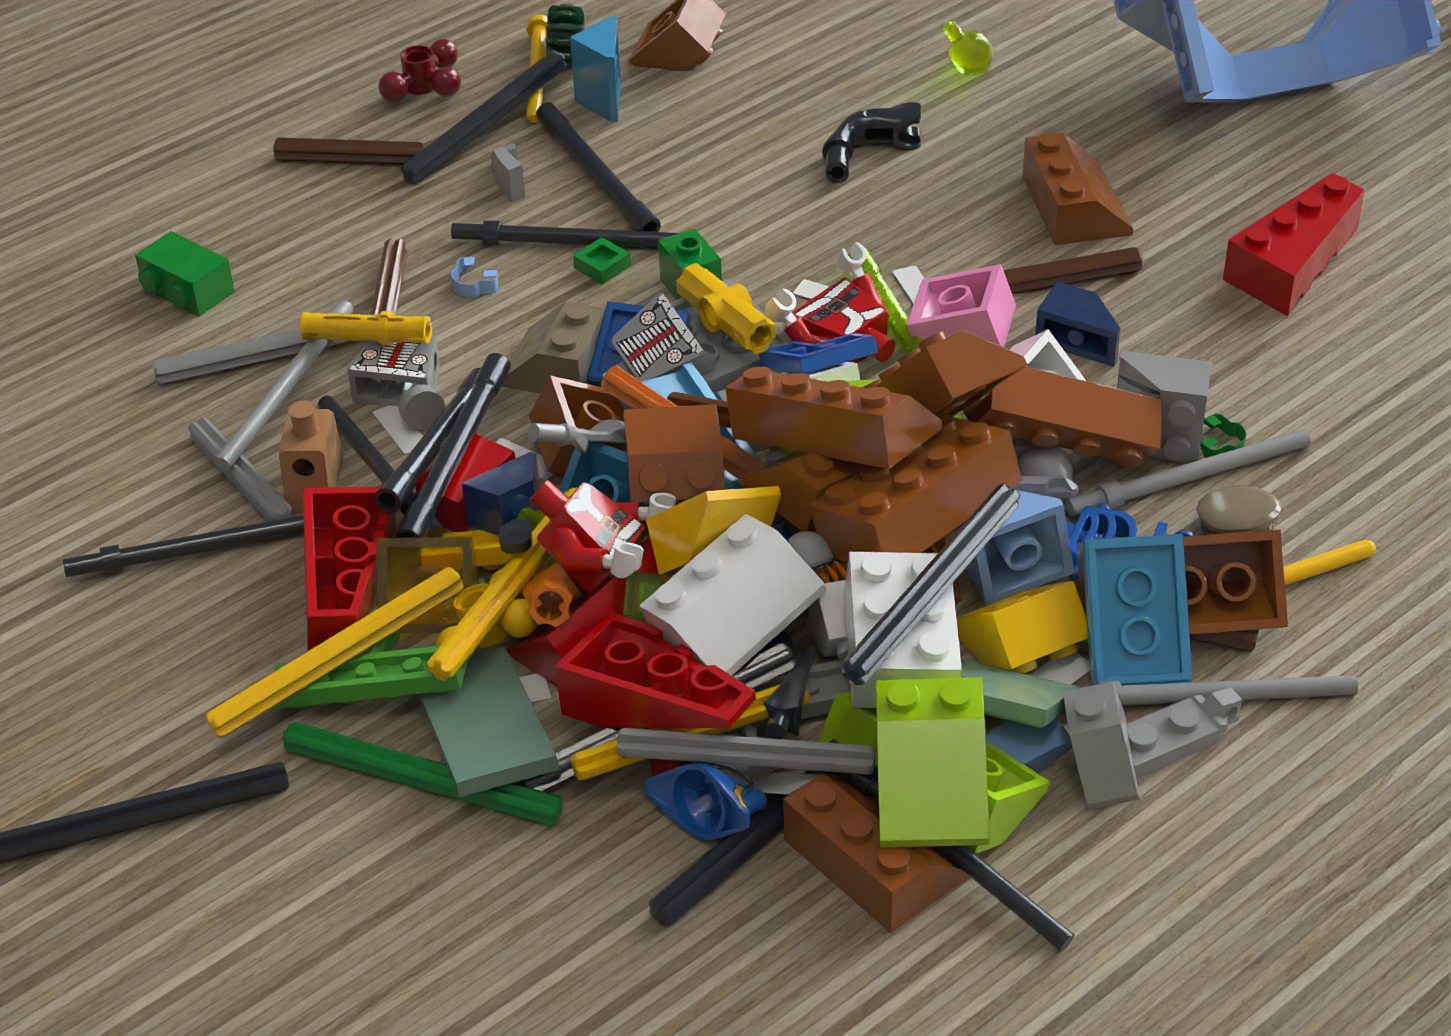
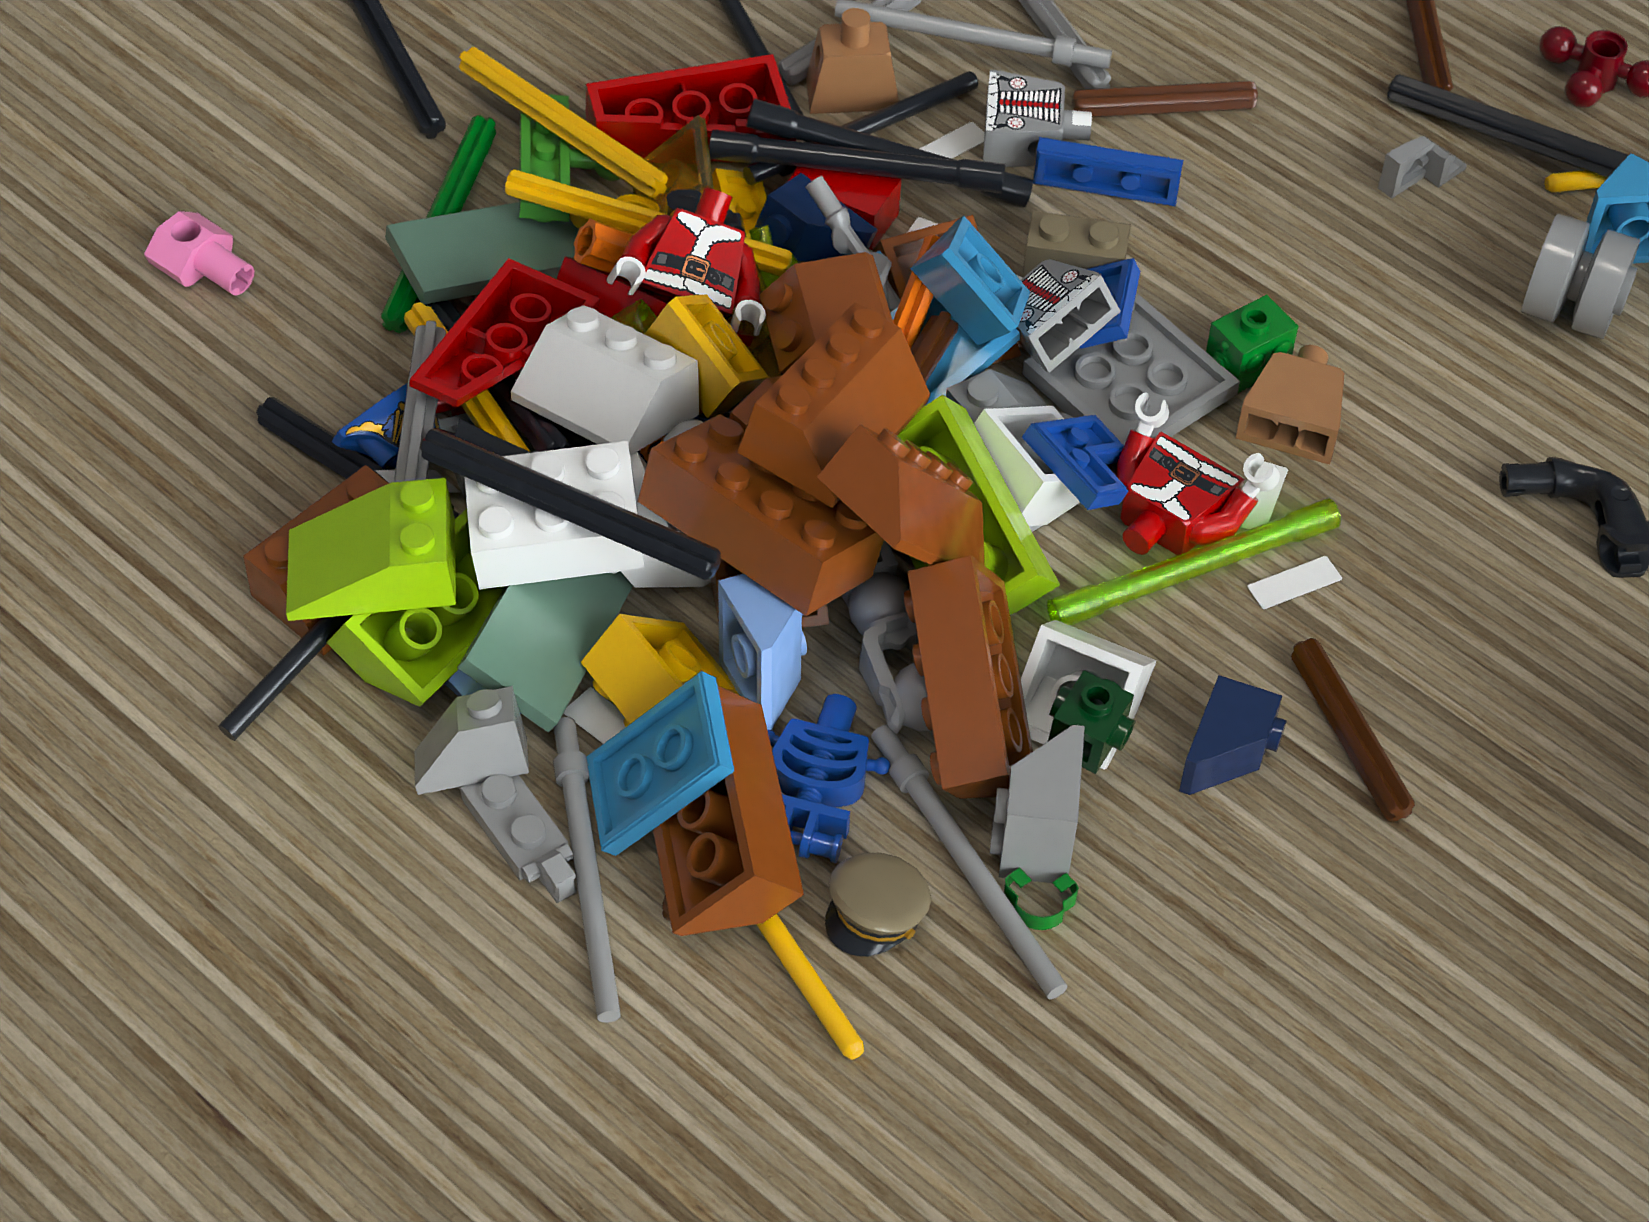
camera: 80 degrees right, 10 degrees up
(380, 328) = (1043, 97): yellow pin -> none
(421, 406) = (962, 142): light grey tile -> none
(425, 971) = (195, 247): none -> bright pink piece
(474, 327) = (1107, 171): none -> blue tile
(479, 287) = (1216, 153): light blue piece -> none
(494, 232) = (1299, 175): black bar -> none
(602, 260) = (1271, 274): green tile -> none
(634, 210) = (1374, 291): black piece -> none
(661, 97) = (1594, 281): none -> light grey wheel
(665, 359) = (973, 283): none -> dark azure slope
(726, 308) = (1148, 366): yellow piece -> none
(757, 254) = (1295, 405): none -> medium nougat torso
(964, 301) = (1213, 611): bright pink slope -> none
(1071, 191) = (1529, 734): dark orange slope -> none
(1090, 359) = (1102, 710): none -> dark green brick
(1294, 243) = (1466, 992): red wedge -> none

